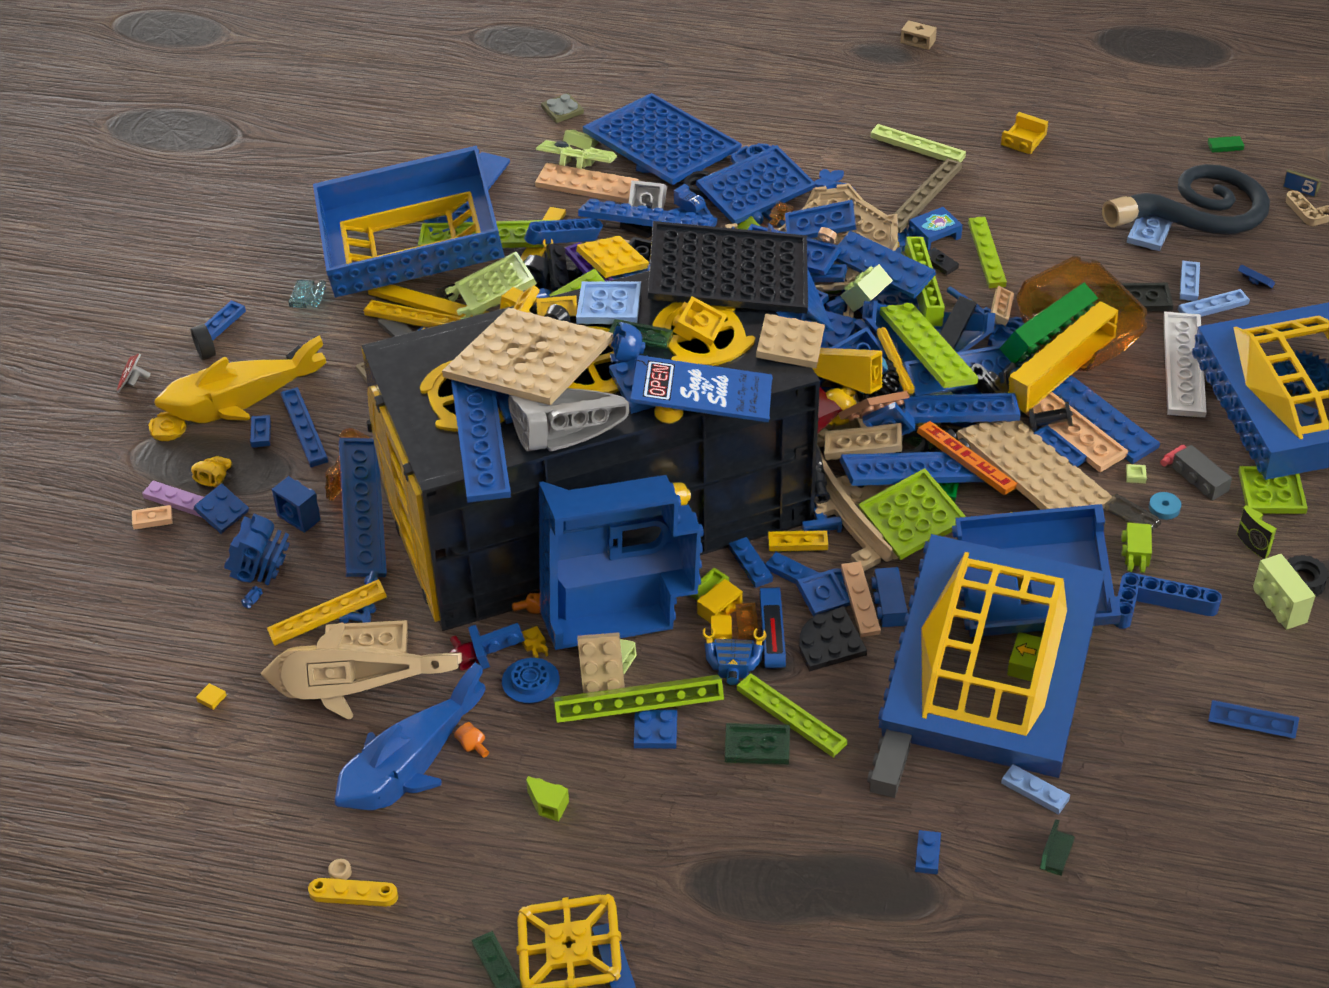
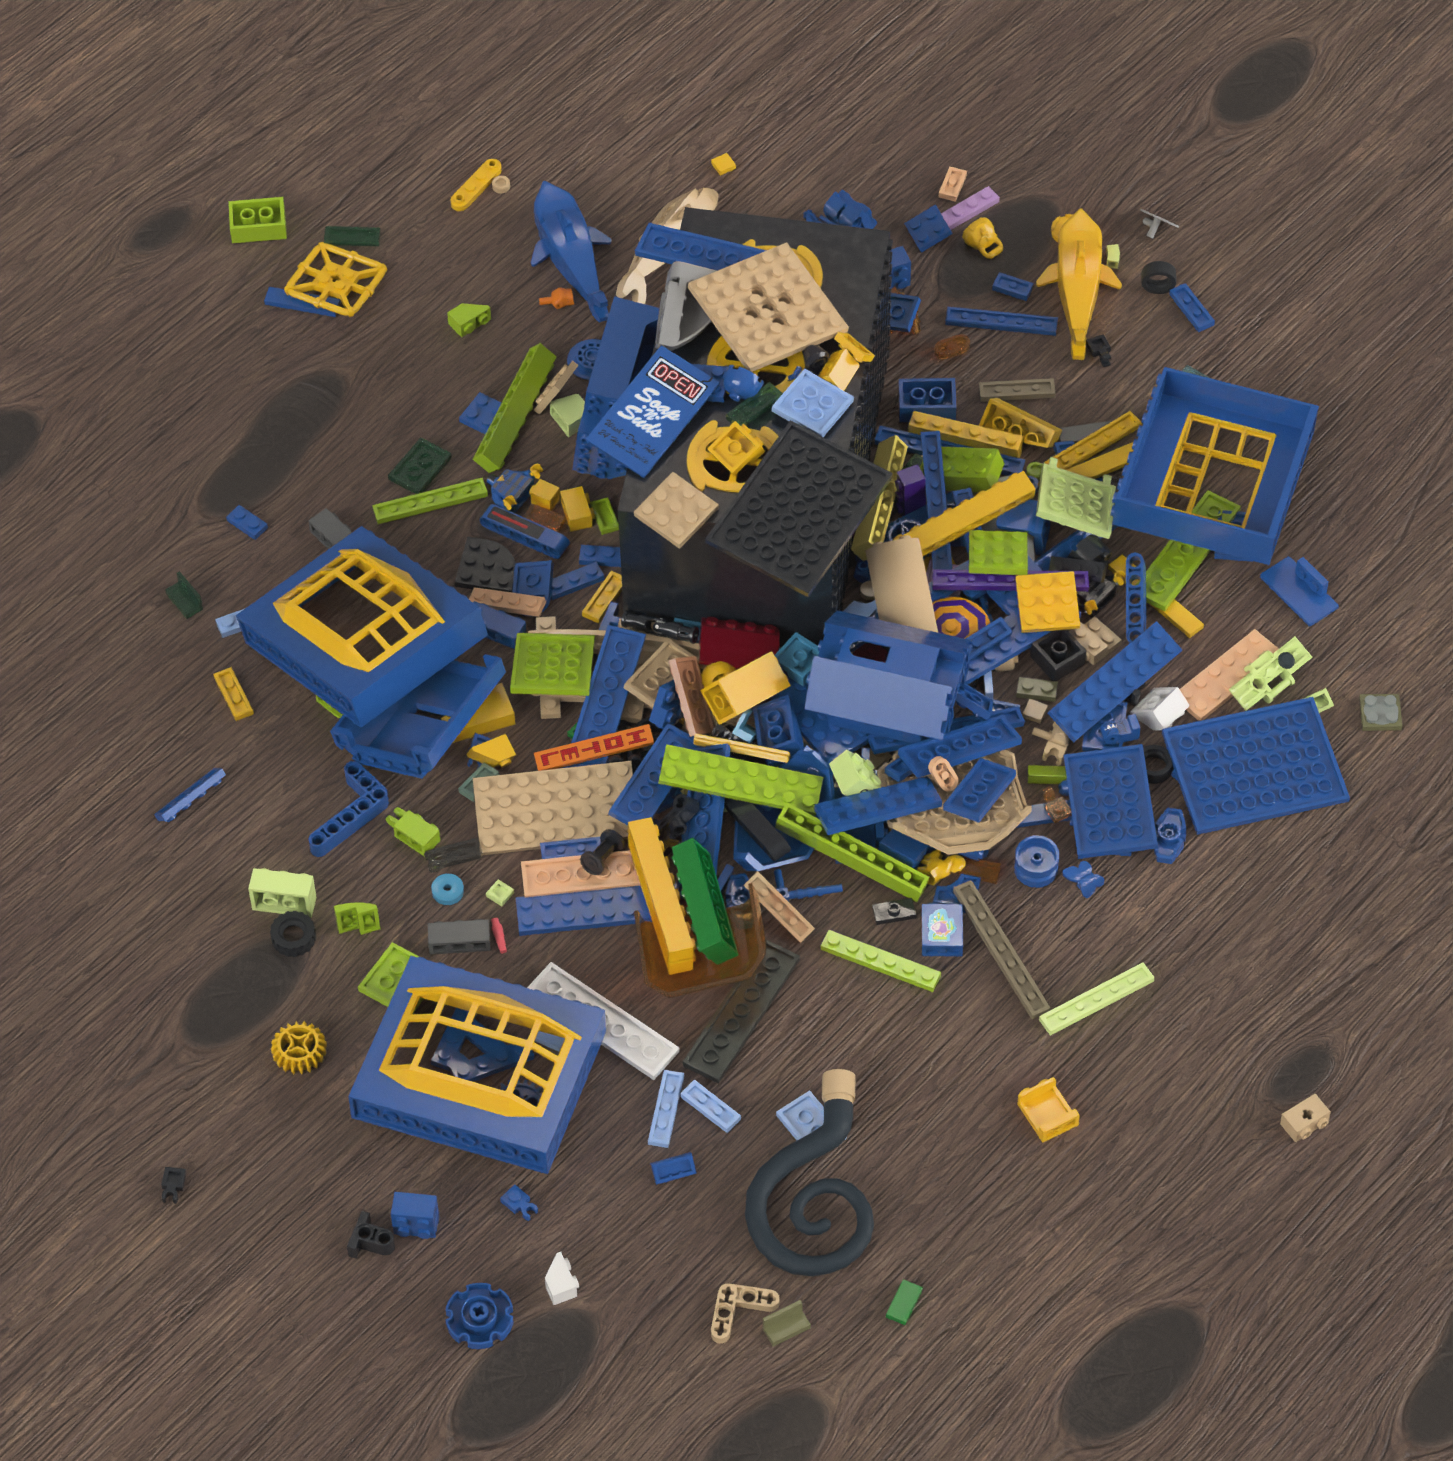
camera: 120 degrees right, 10 degrees up
(1121, 753) = (233, 694): none -> yellow tile

